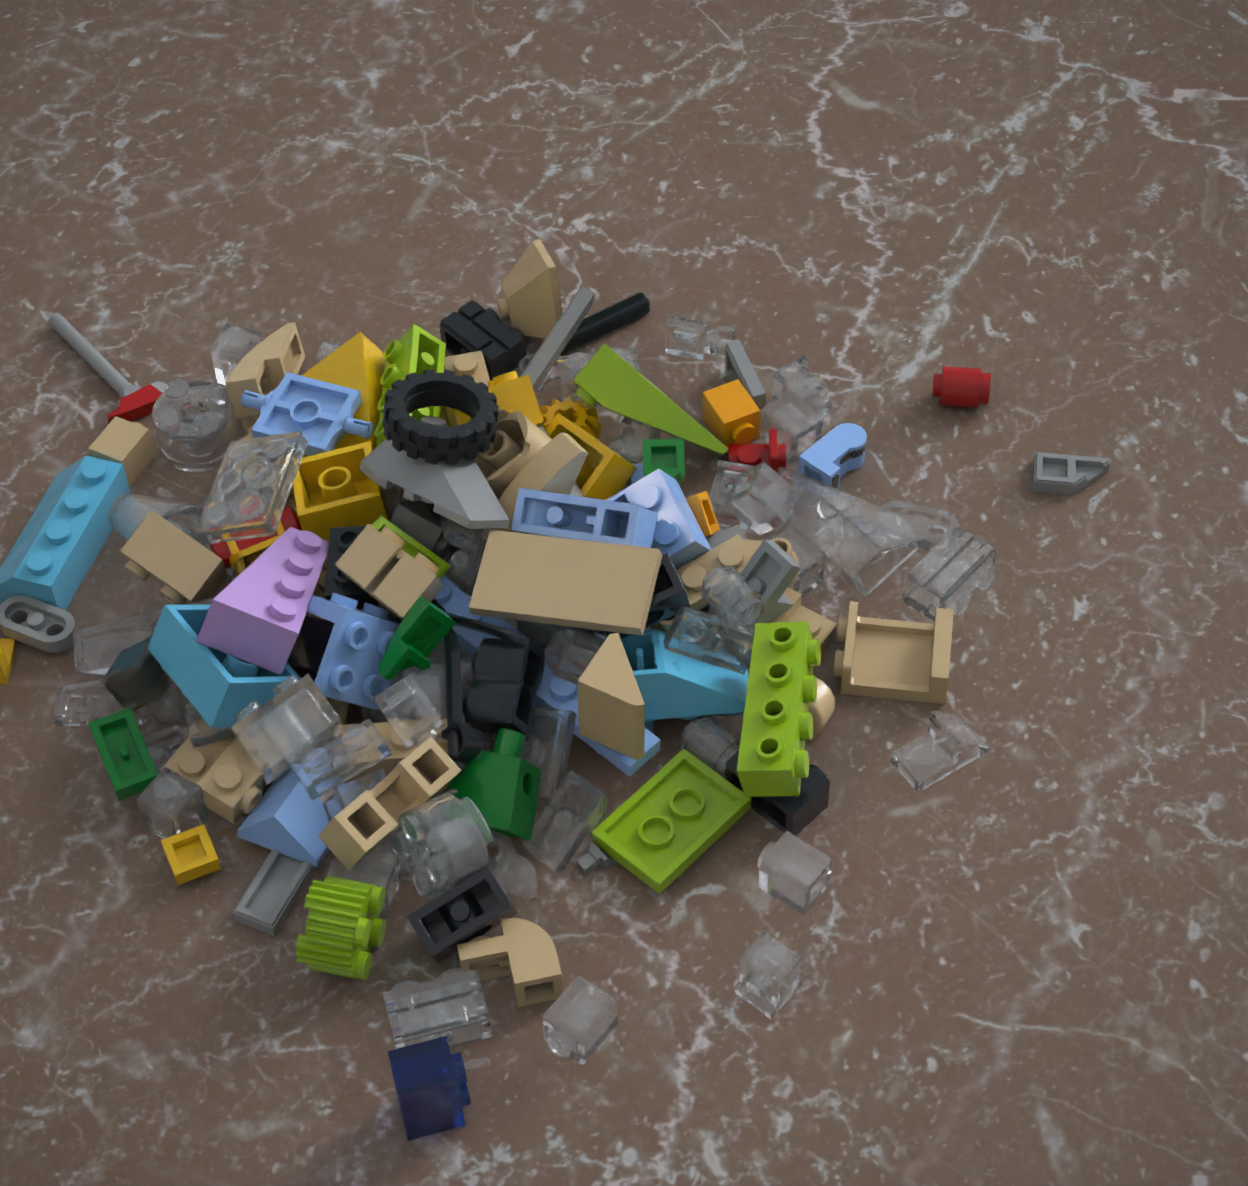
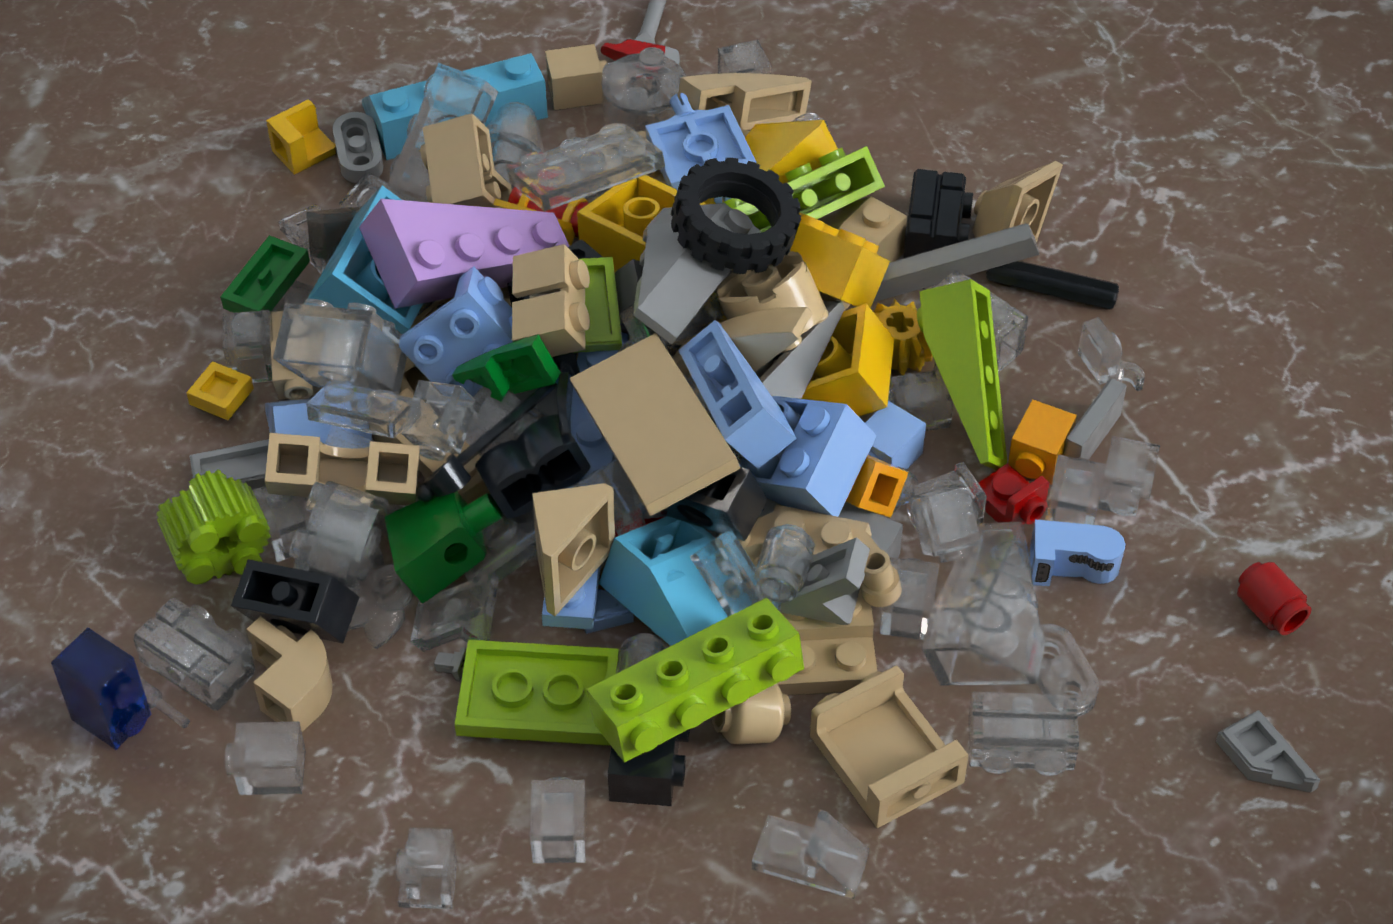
camera: 50 degrees right, 0 degrees up
(93, 523) = (446, 96): none -> clear arch
(665, 455) = (907, 424): green slope -> none

